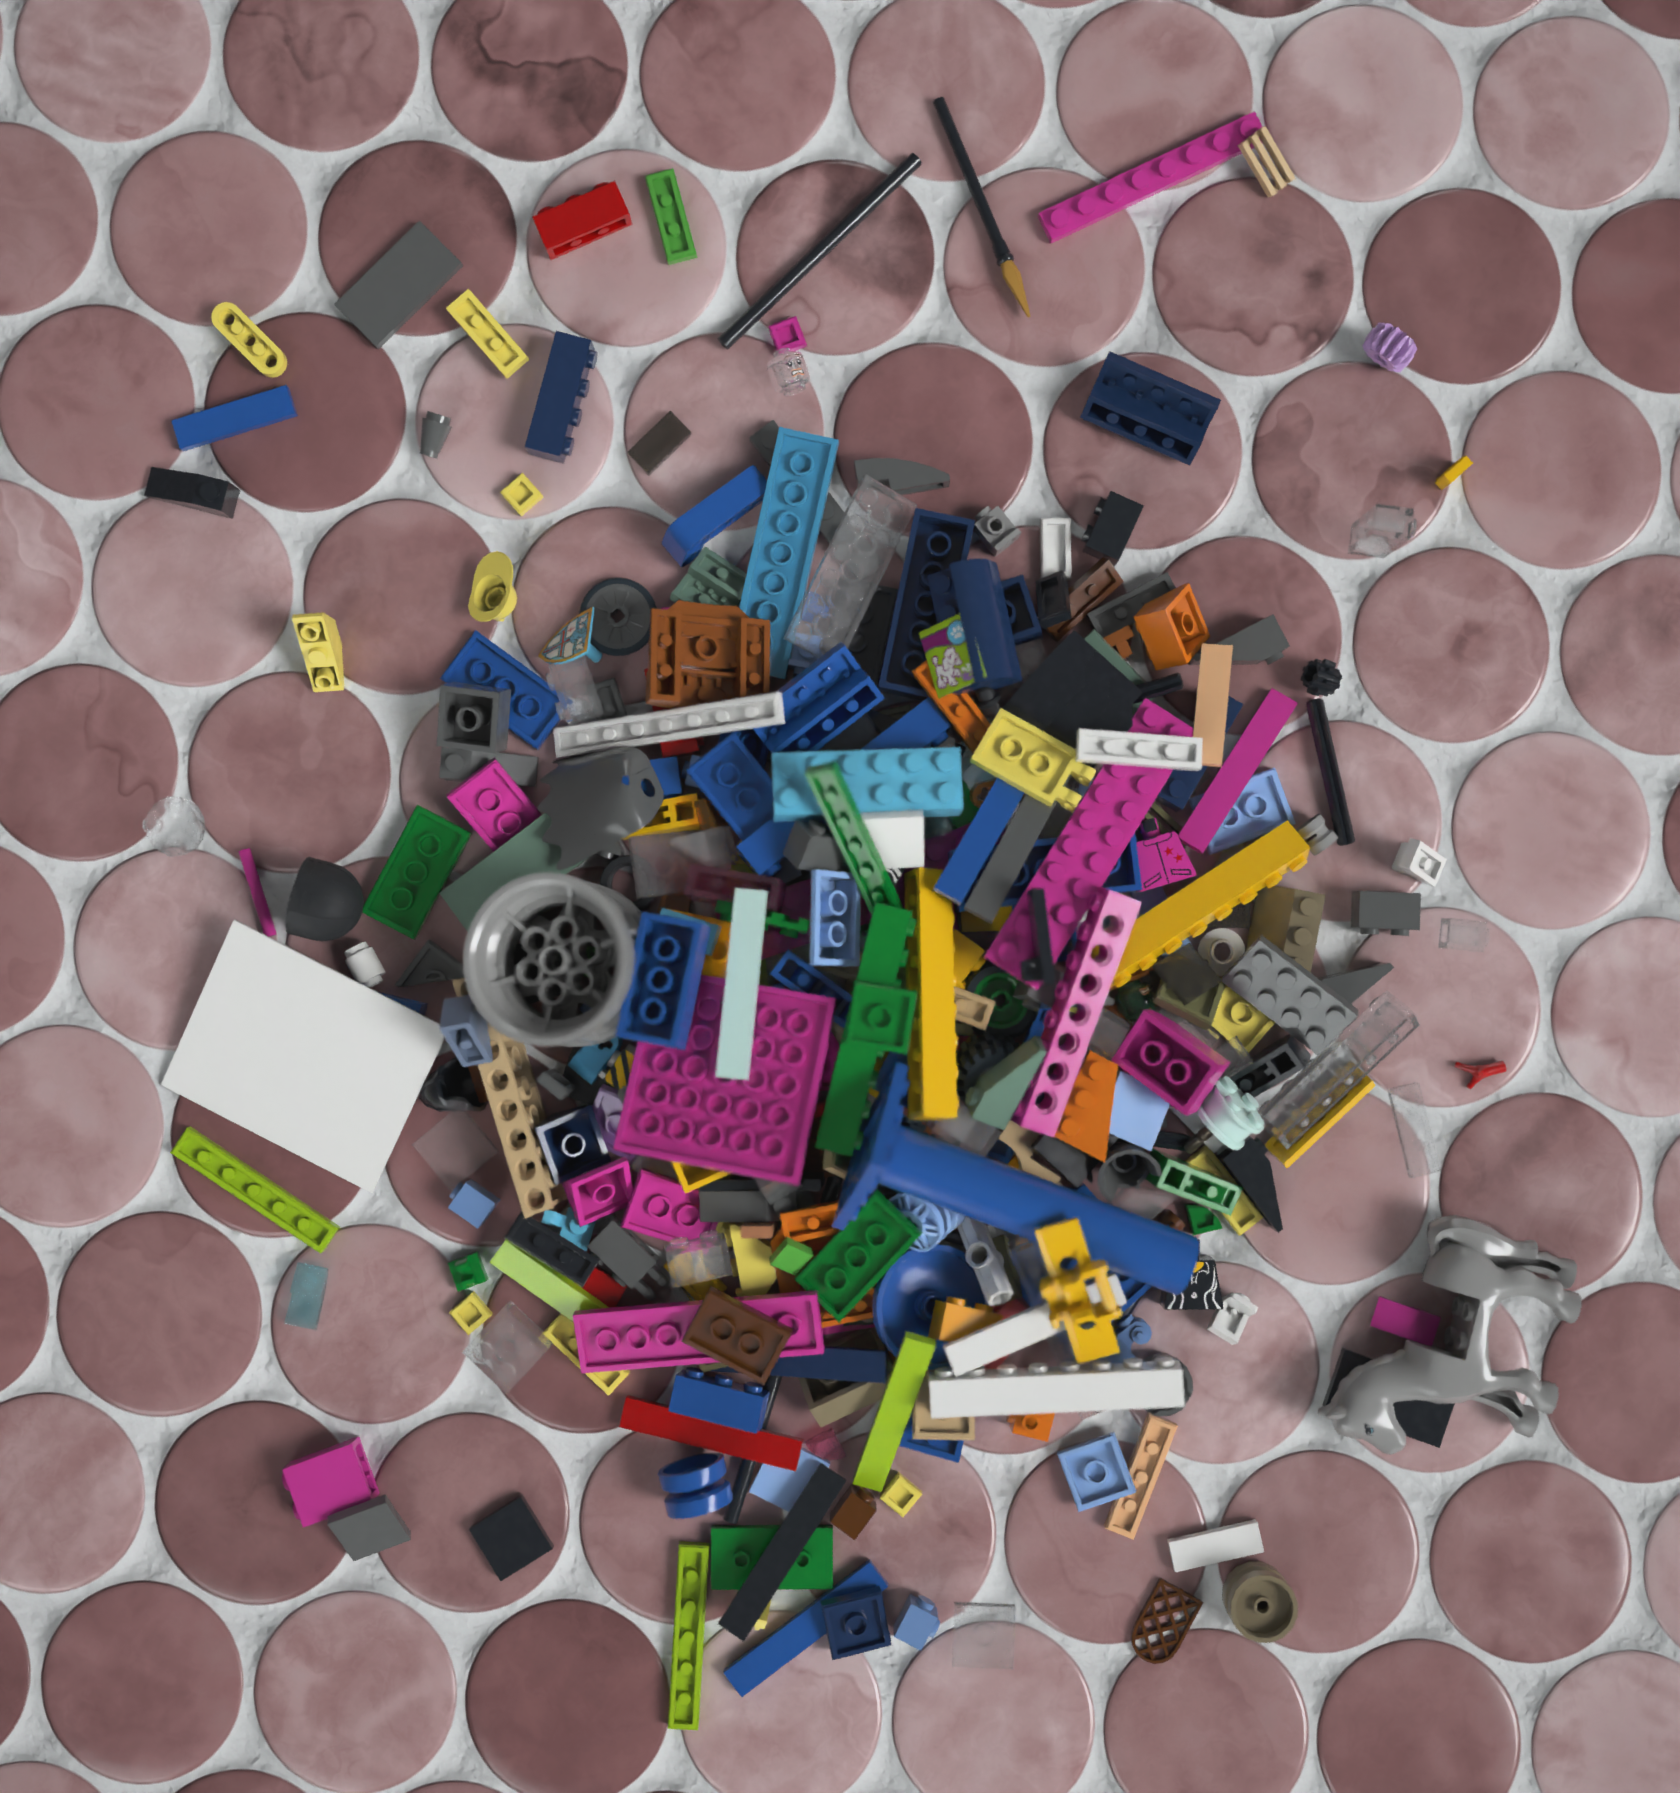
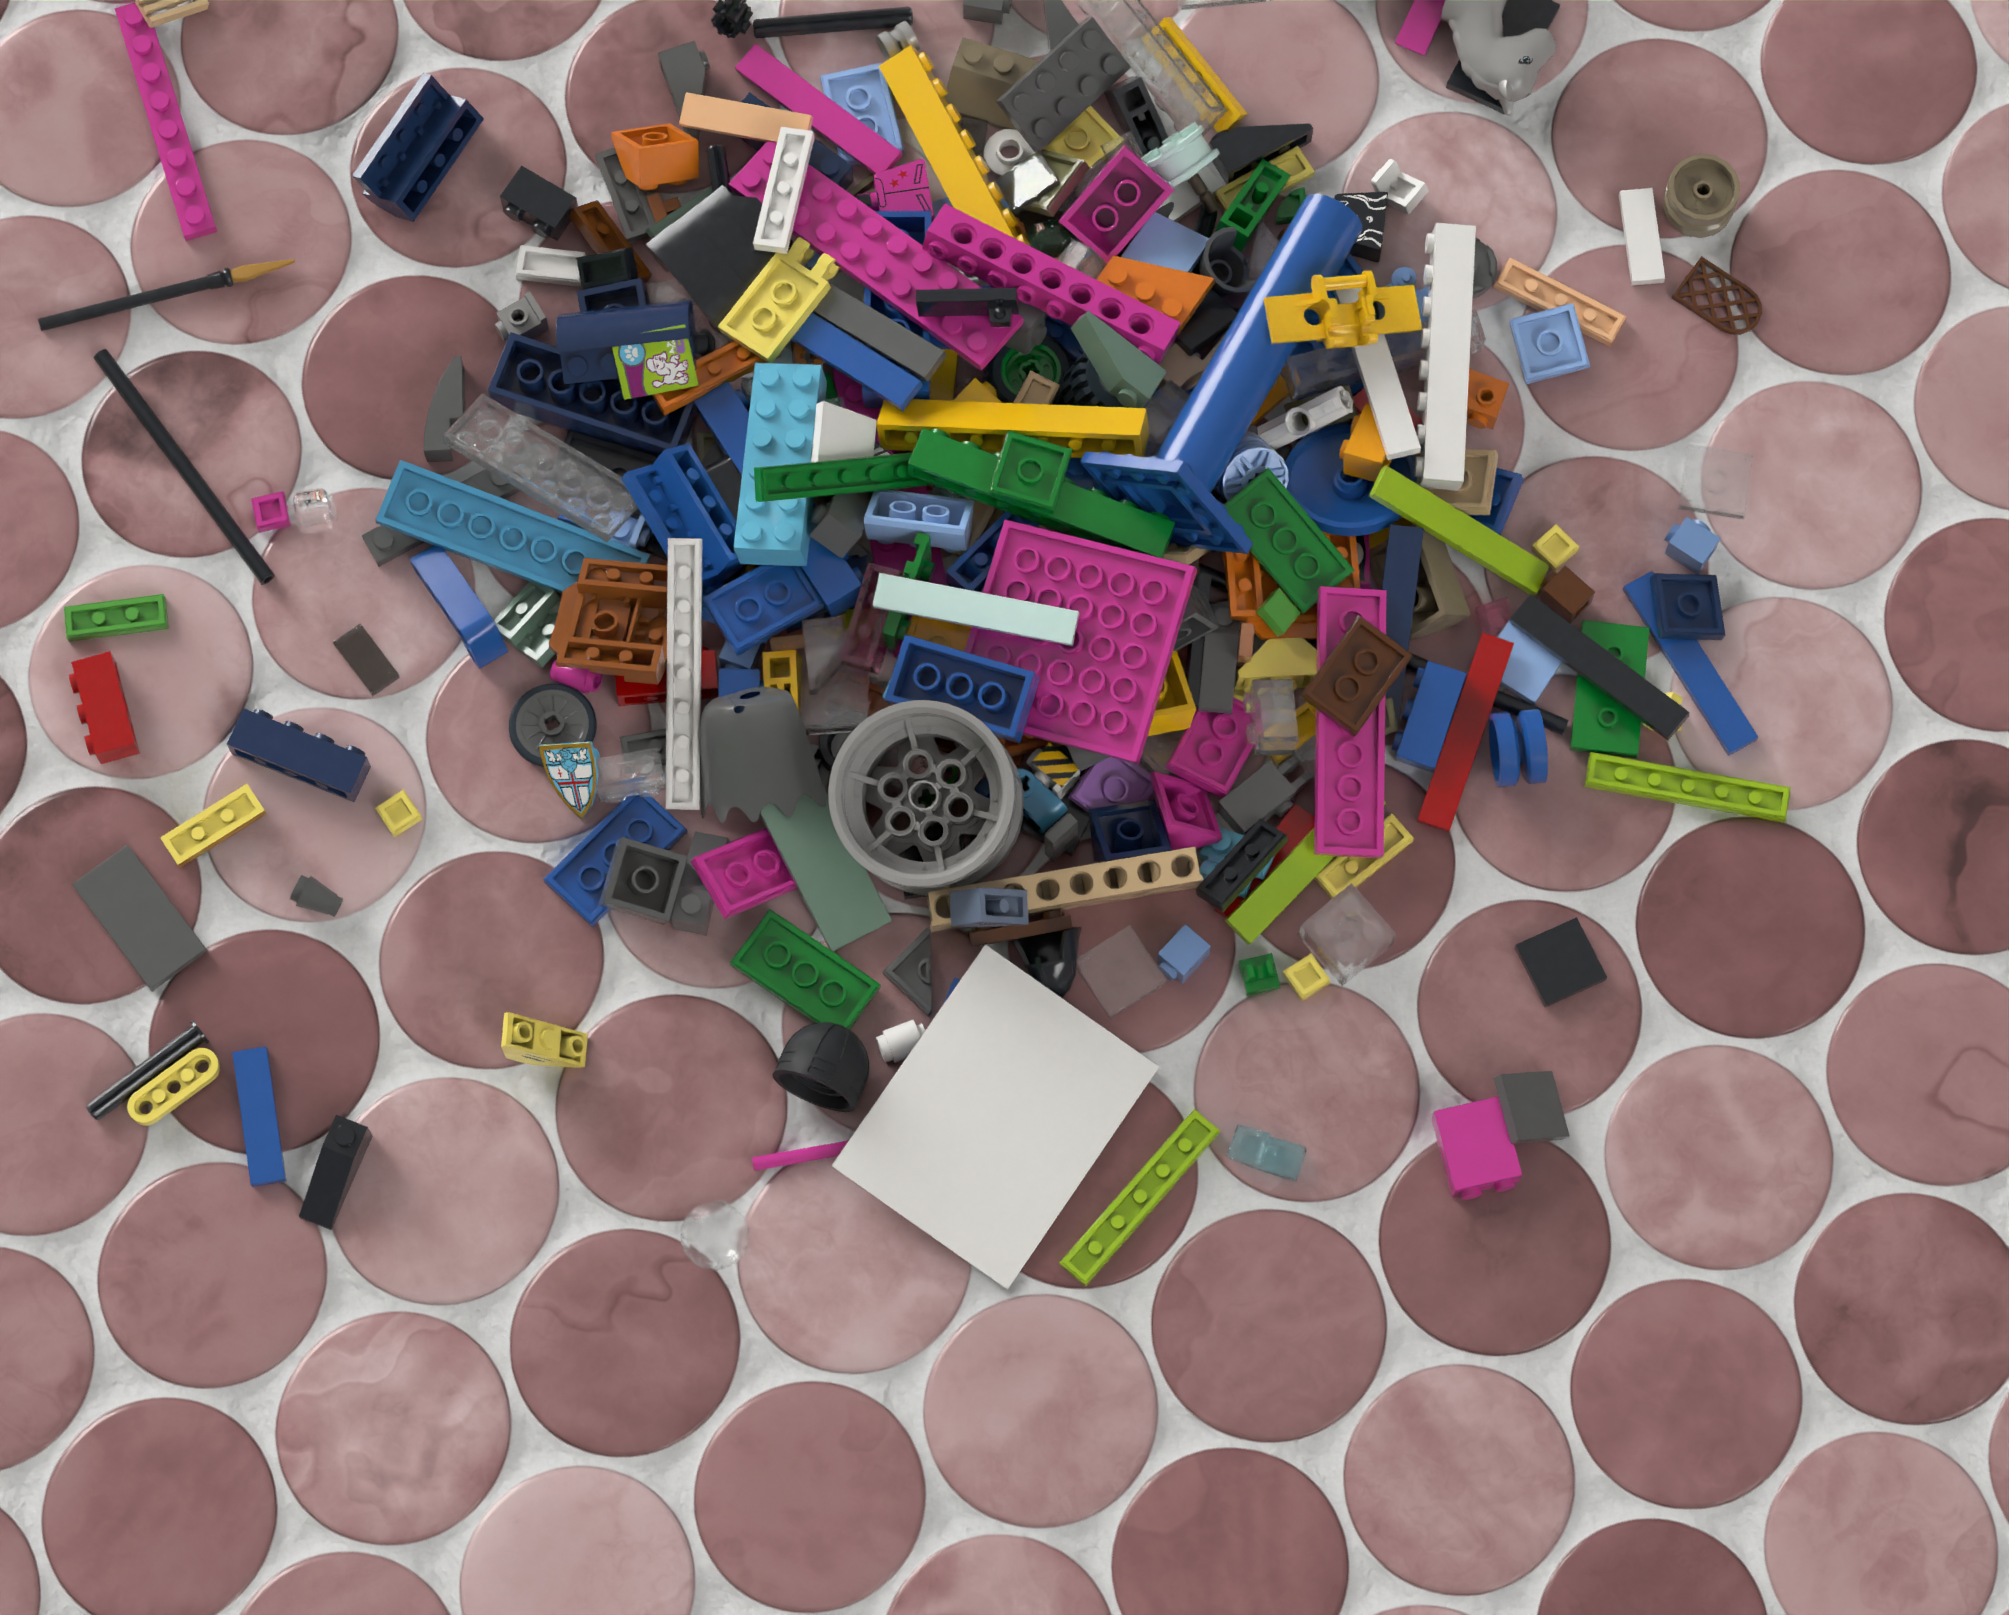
camera: 80 degrees left, 15 degrees down
(262, 316) = (146, 1071): none -> black axle
(492, 589) = (499, 848): light yellow piece -> none

